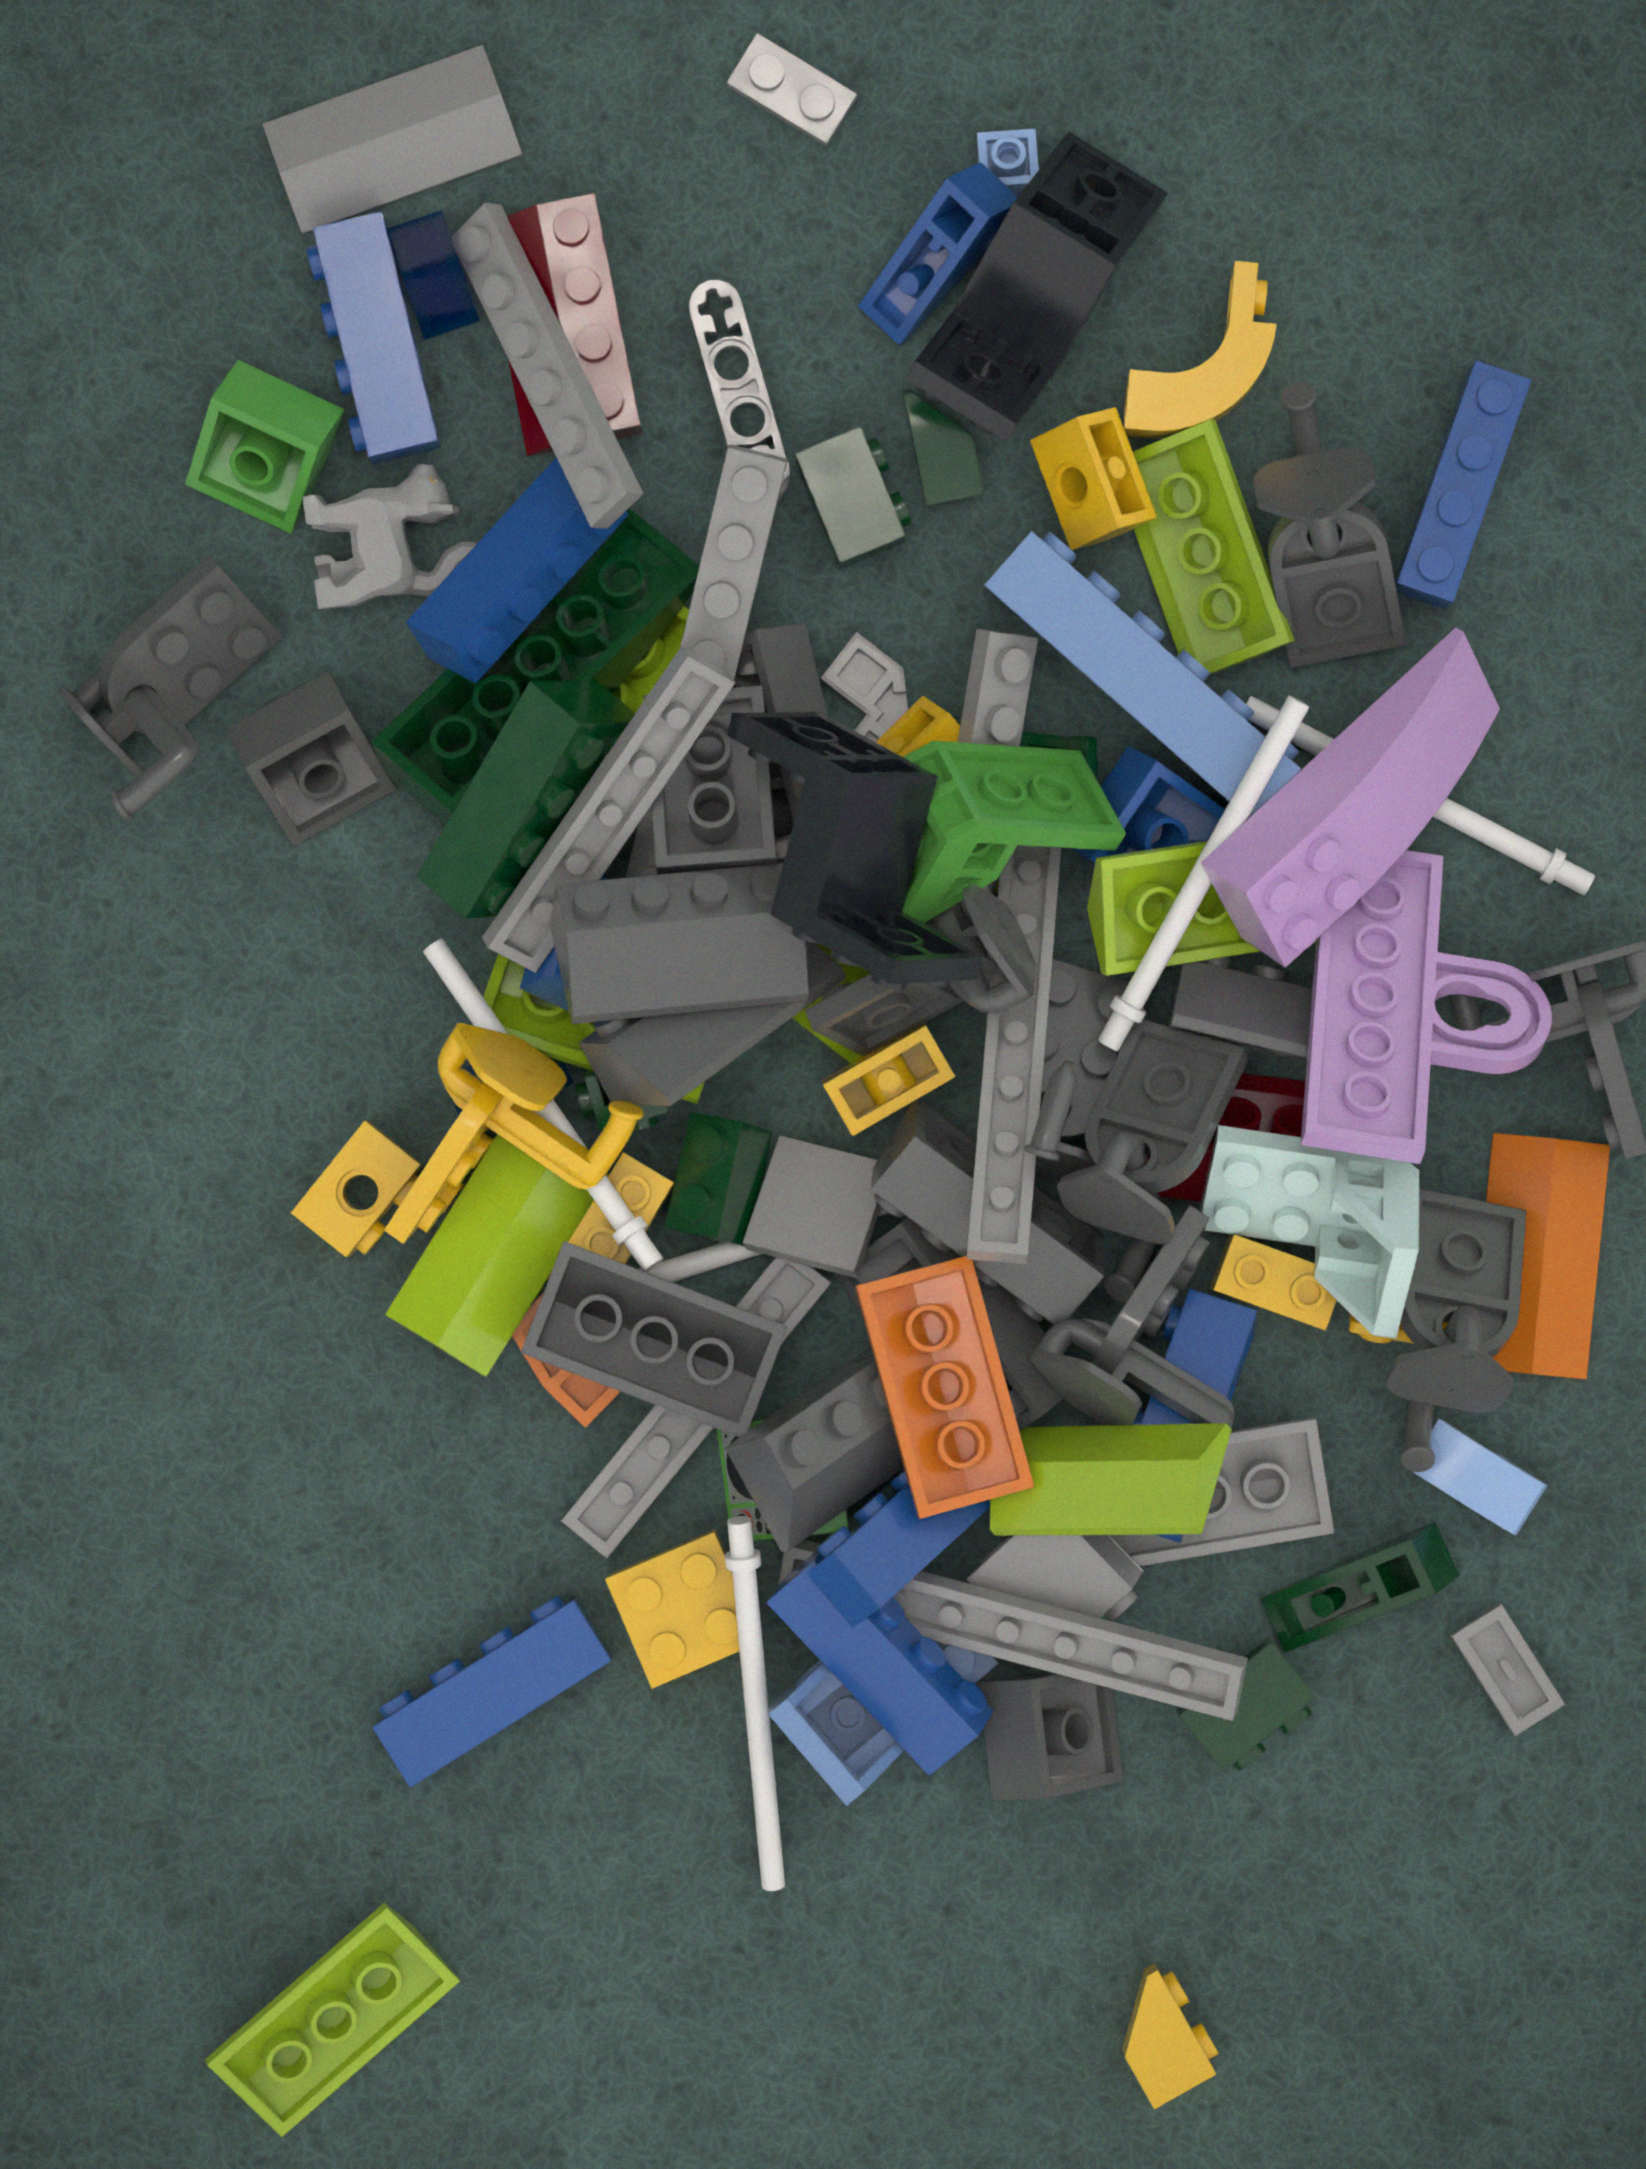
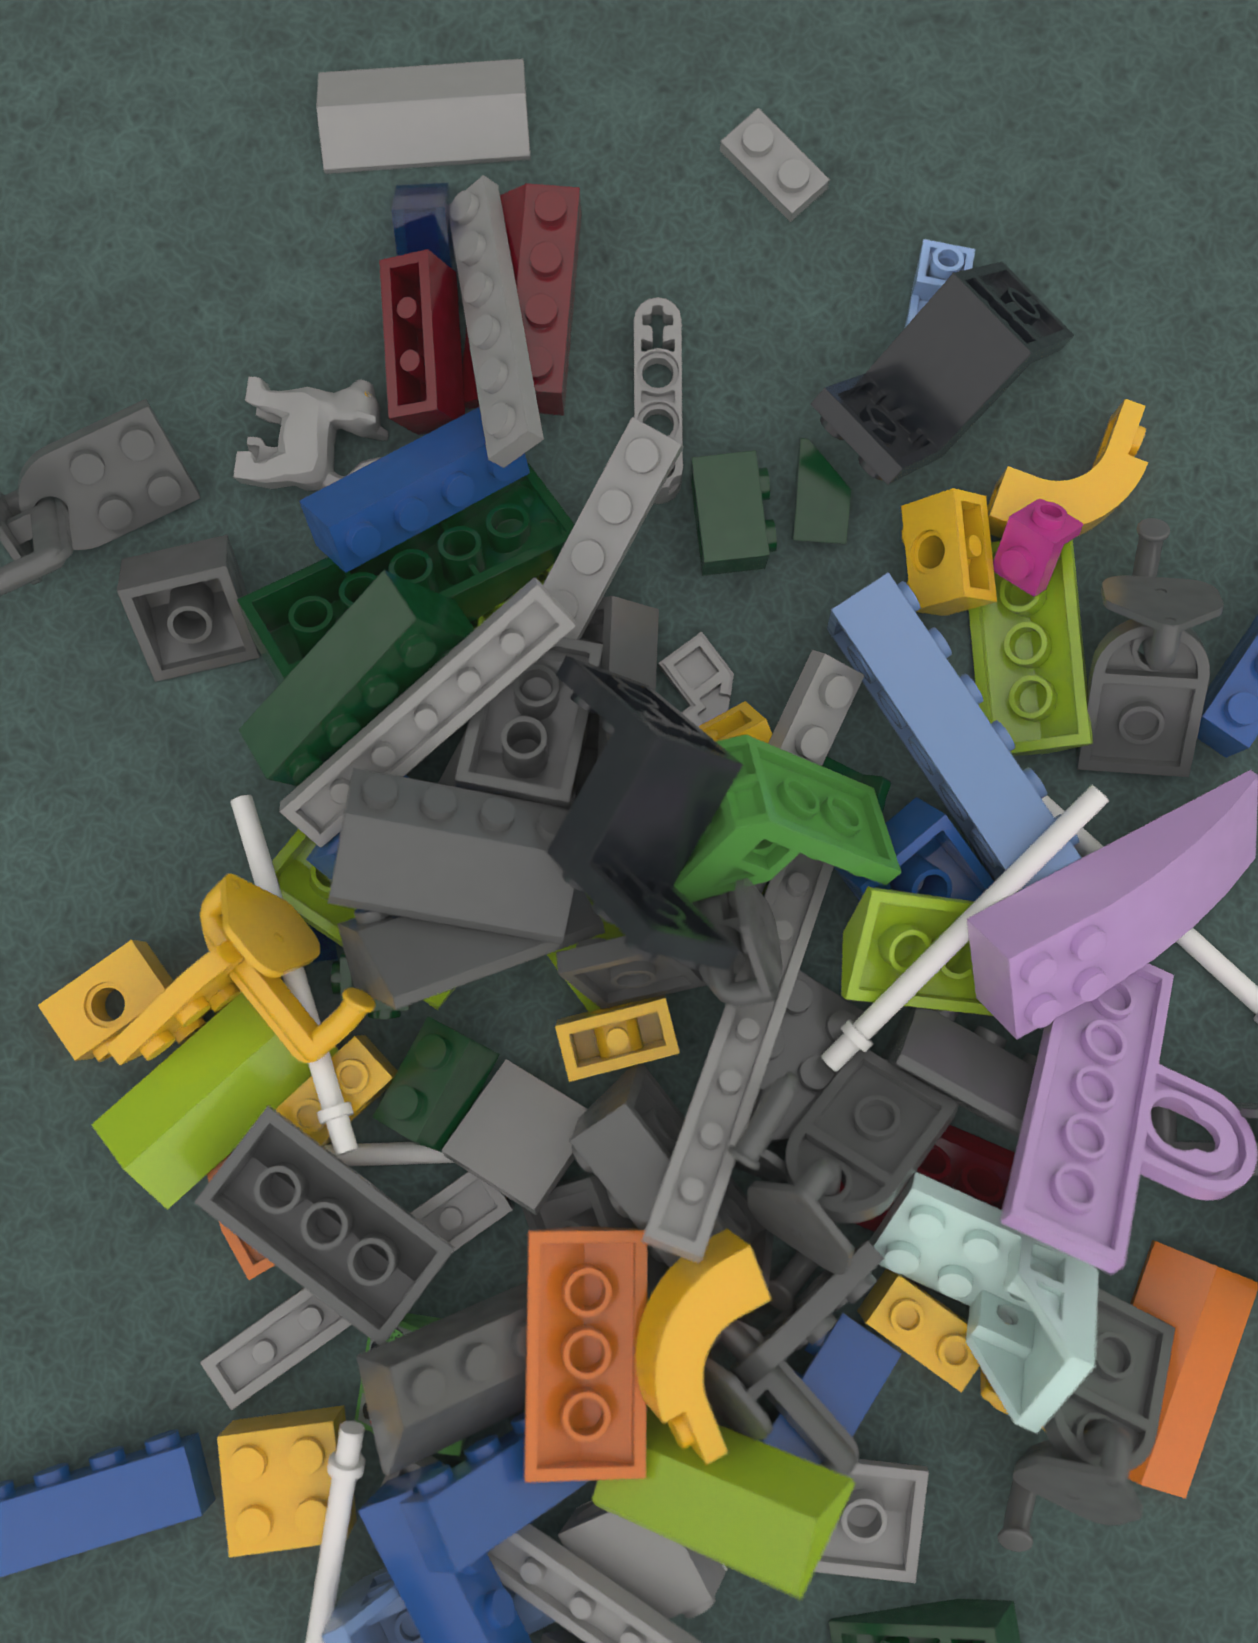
camera: 15 degrees right, 5 degrees down
(263, 445) = (232, 327): bright green slope -> none
(375, 338) = (351, 243): brick -> none
(474, 406) = (421, 341): none -> dark red brick
(938, 251) = (863, 321): blue slope -> none
(1026, 1336) = (679, 1328): none -> yellow arch
(1176, 448) = (1034, 544): none -> dark pink bracket
(1481, 1478) = (1069, 1571): light blue slope -> none

